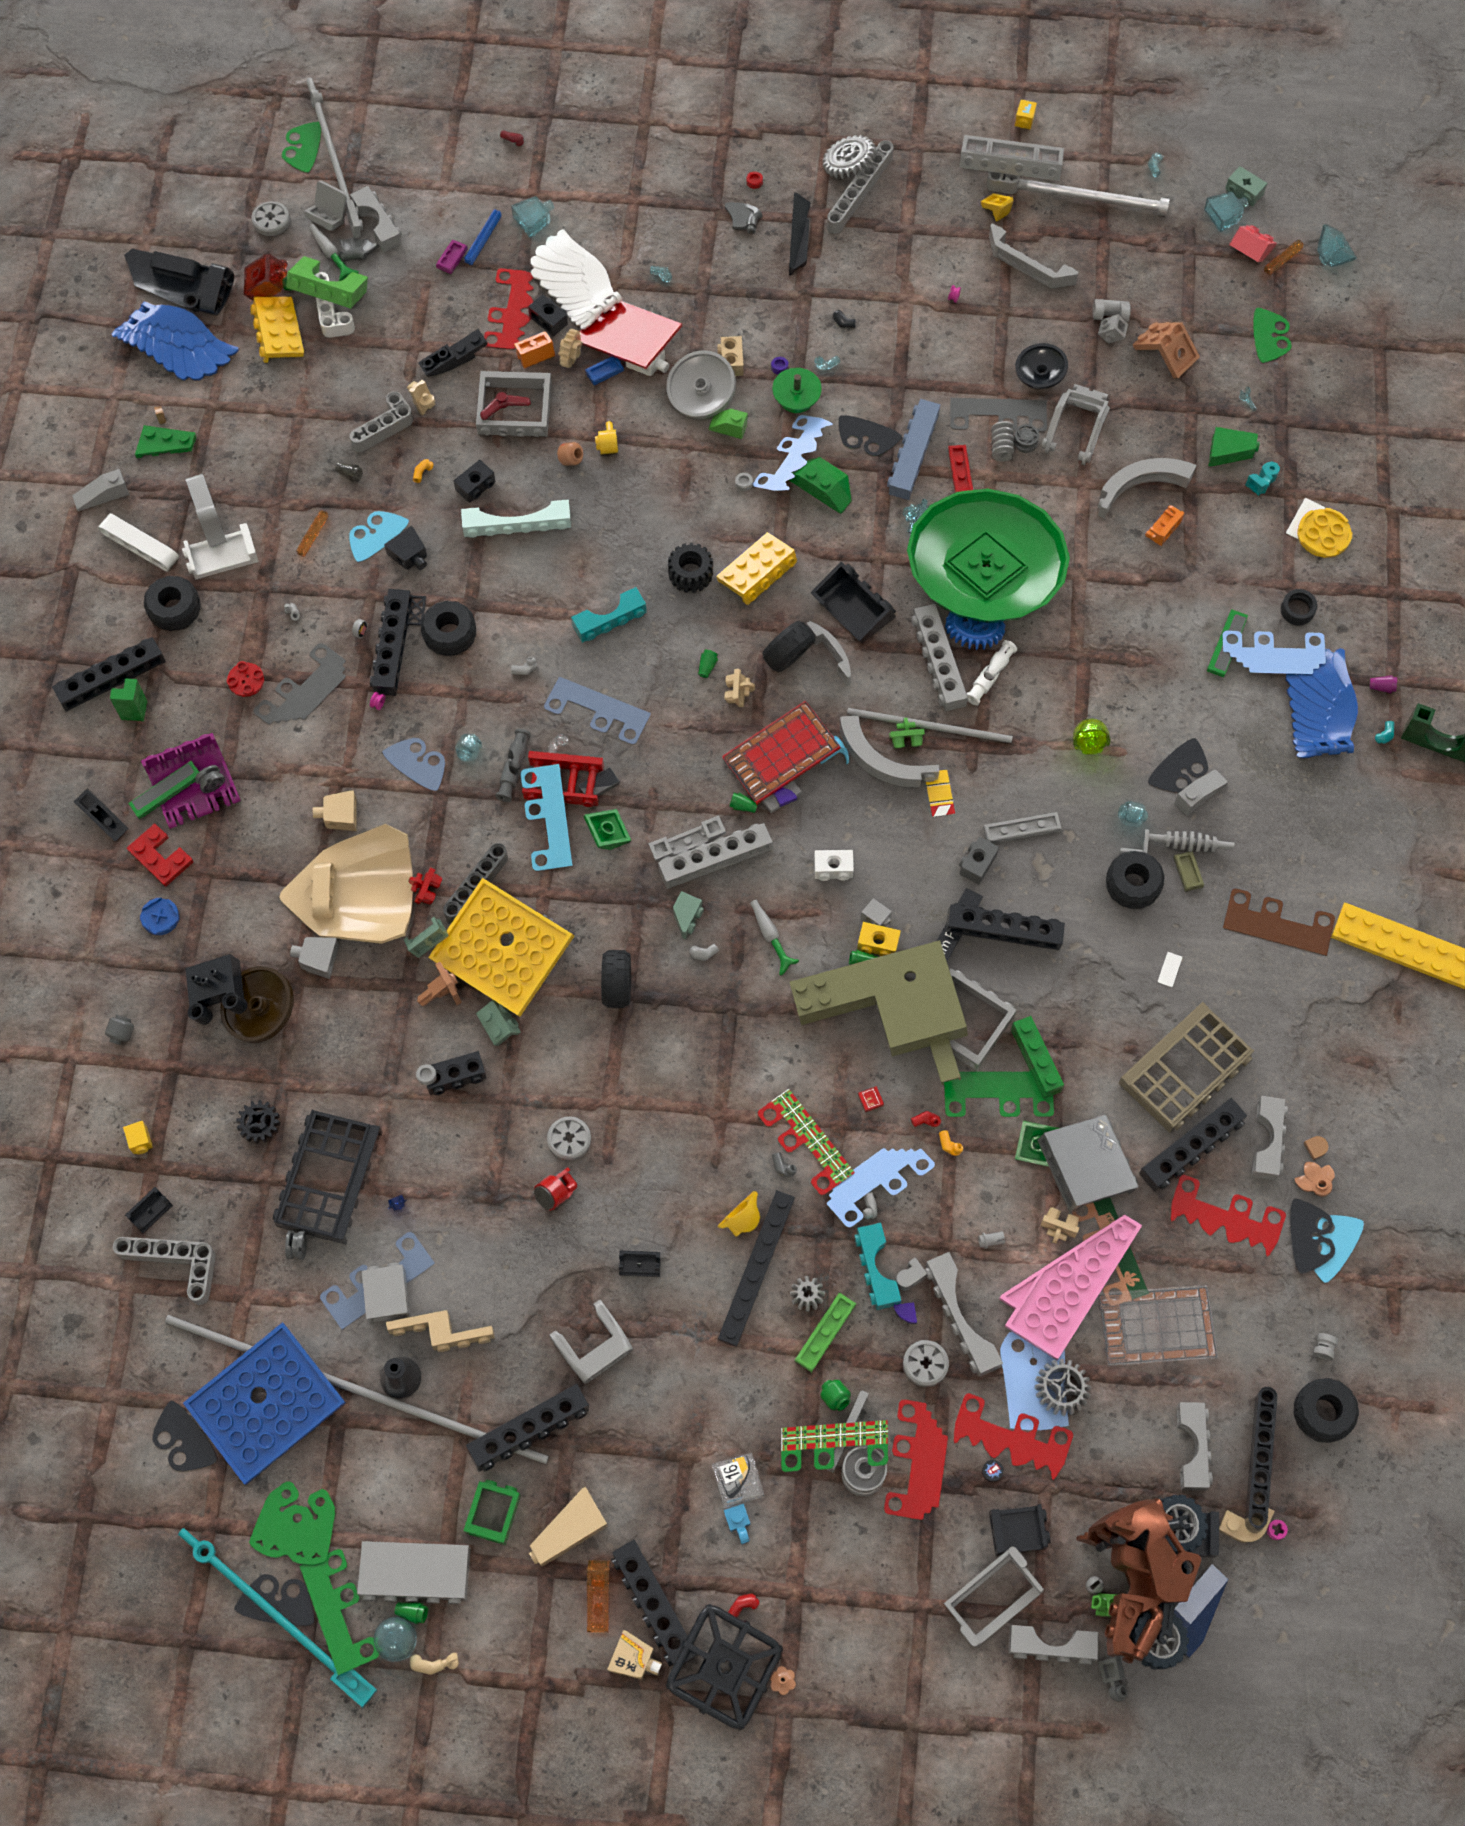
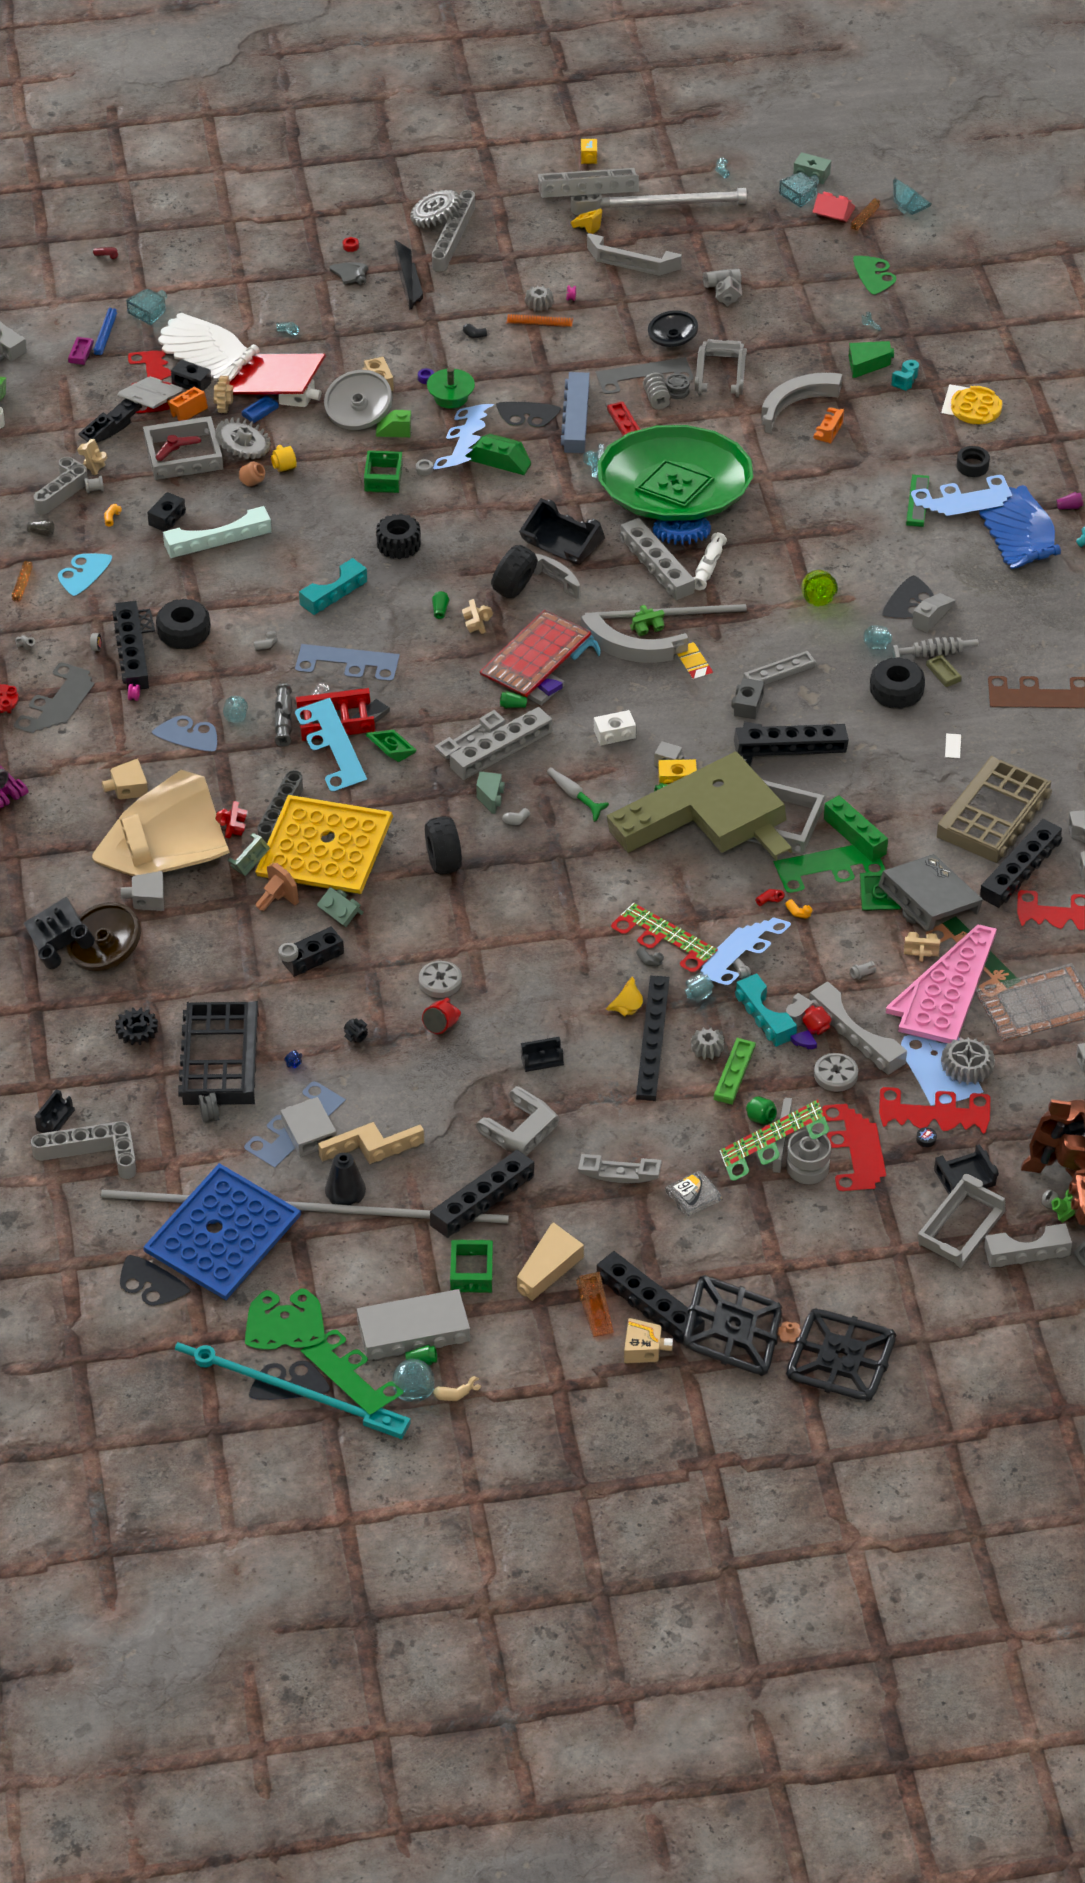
camera: 15 degrees left, 20 degrees down
(138, 1137) = (23, 1061): yellow brick -> none
(407, 549) = (120, 574): black torso -> none
(416, 429) = (94, 484): none -> light grey bush
(466, 1184) = (355, 1030): none -> black gear
(502, 328) = (151, 392): none -> light grey piece
(578, 400) = (242, 439): none -> light grey gear
(673, 1430) = (619, 1171): none -> light grey slope
(696, 494) = (383, 482): none -> green window
(738, 1520) = (704, 1223): dark azure plate -> none
(743, 1602) = (735, 1278): red arm -> none
(758, 568) = (462, 526): yellow bracket -> none
(810, 1729) = (847, 1365): none -> black plate
(819, 1219) = (698, 987): none -> clear light blue head
(826, 365) = (470, 367): clear light blue arm -> none
(870, 1099) = (713, 893): red tile -> none
(914, 324) = (544, 322): none -> orange piece
(919, 293) = (539, 298): none -> light grey gear
(924, 1296) = (816, 1020): none -> red head
(1168, 340) = (786, 287): nougat bracket -> none

